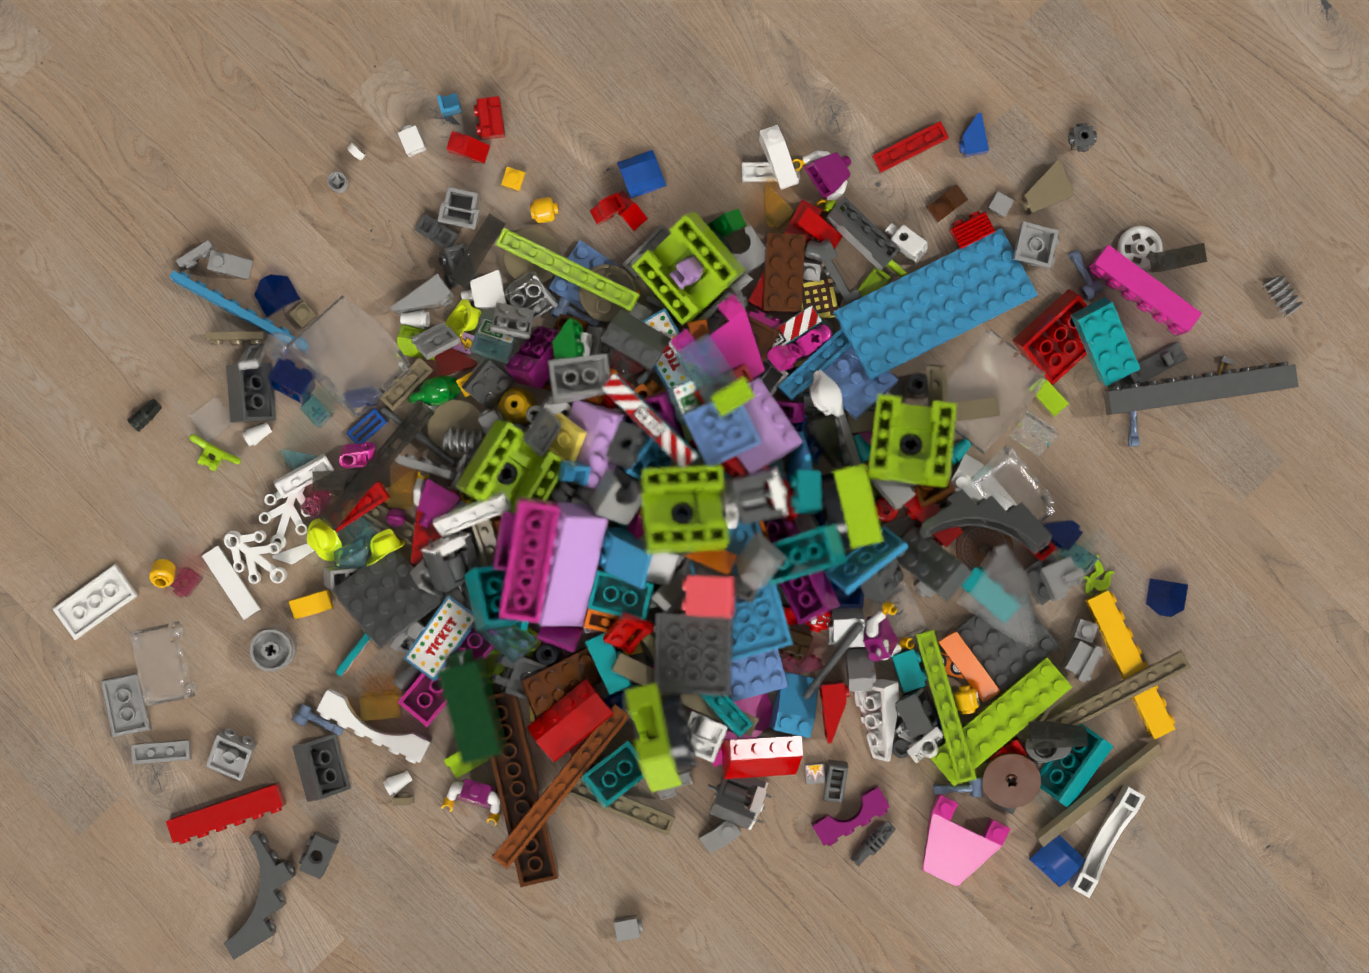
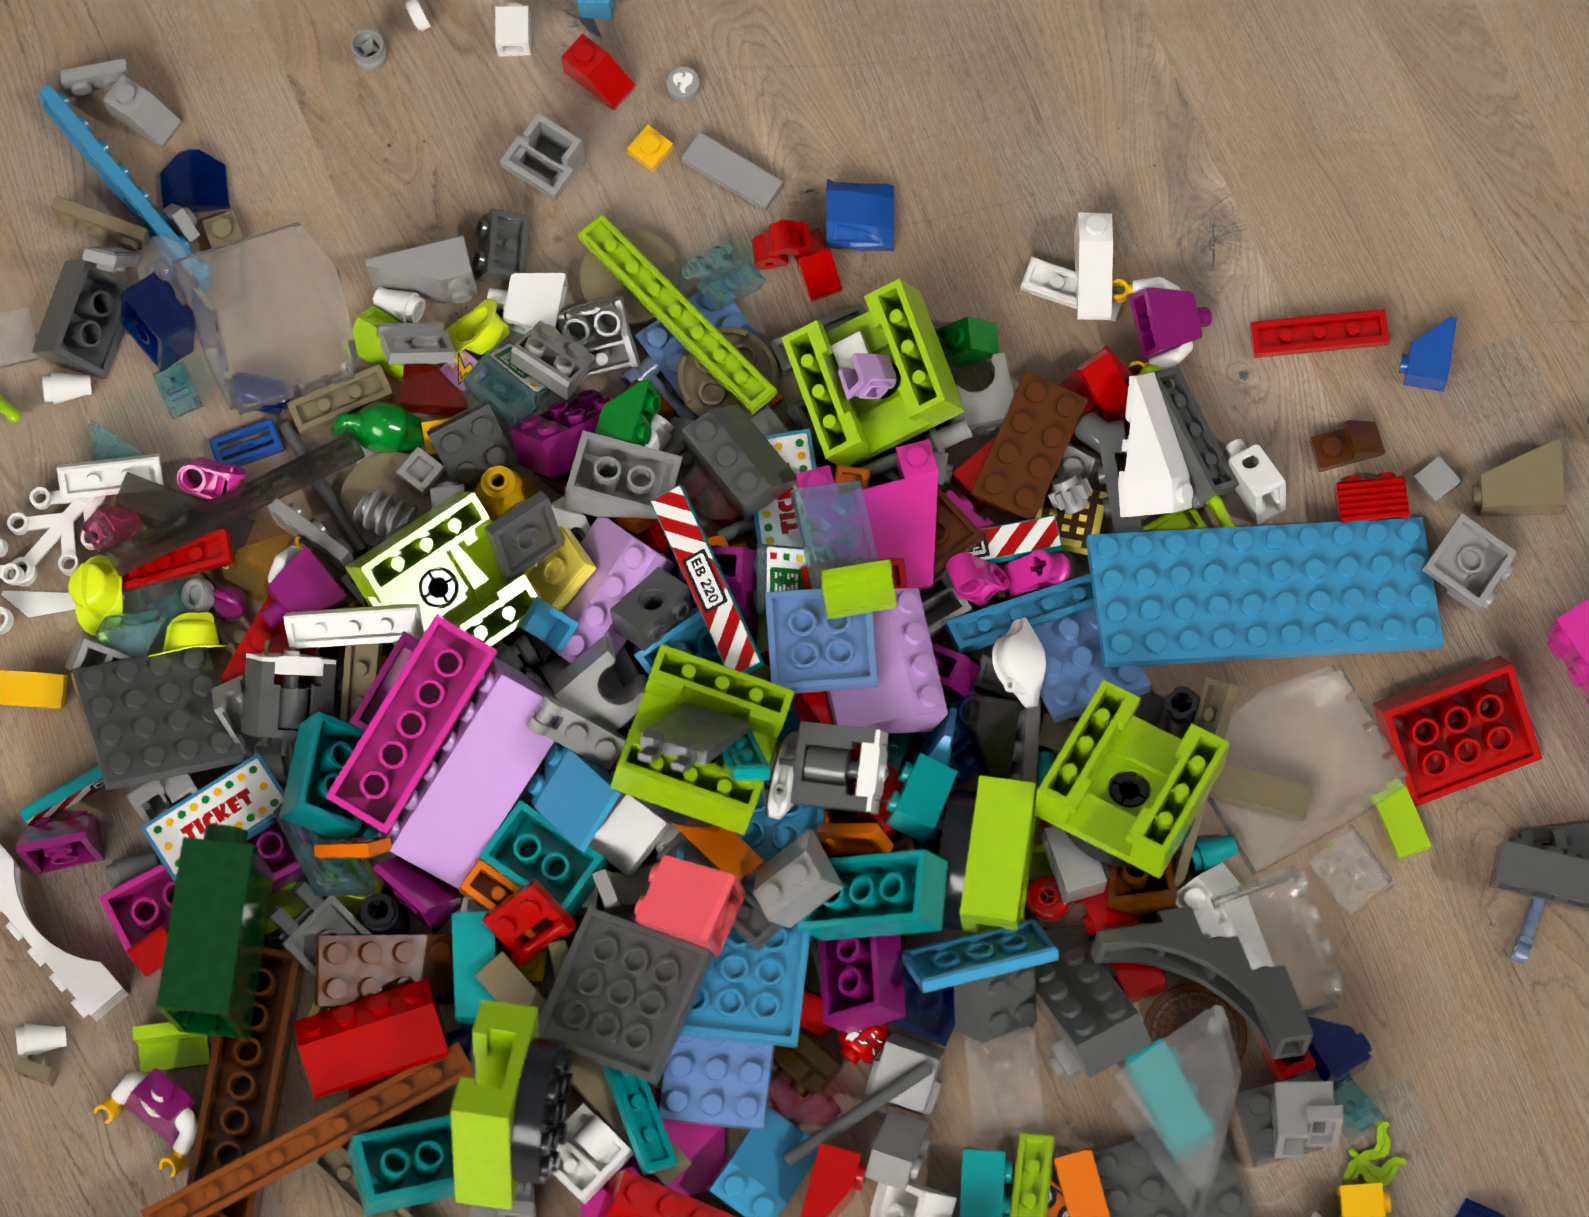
camera: 30 degrees right, 15 degrees down
(280, 319) = (182, 221): none -> light grey plate
(363, 679) = (61, 843): none -> magenta slope
(378, 521) = (198, 595): none -> light grey tile
(380, 706) = (67, 899): clear yellow brick -> none
(436, 232) = (491, 183): dark grey slope -> none
(439, 722) = (150, 951): none -> red brick
(466, 408) = (420, 471): none -> light grey plate
(477, 250) = (543, 233): clear smoke tile -> none
(490, 118) = (652, 41): red brick -> none
(516, 135) = (683, 84): none -> light grey tile
(521, 631) = (352, 847): none -> orange tile
(544, 210) = (678, 212): yellow head -> none
(562, 175) = (732, 171): none -> light grey tile
(588, 241) = (728, 284): none -> clear light blue plate
(614, 527) = (577, 732): none -> light grey plate
(671, 259) = (848, 347): none -> white tile
(680, 515) = (691, 735): none -> dark grey tile
(709, 512) = (746, 759): none -> teal tile
(775, 208) = (1057, 347): clear yellow slope -> none
(779, 525) = (854, 838): none -> orange tile
(814, 289) = (1070, 493): none -> light grey gear
(855, 258) = (1155, 468): none -> white wedge
(880, 637) = (955, 1105): torso -> none
(1091, 288) = (1540, 669): sand blue brick -> none
(1105, 341) = (1529, 760): teal brick -> none

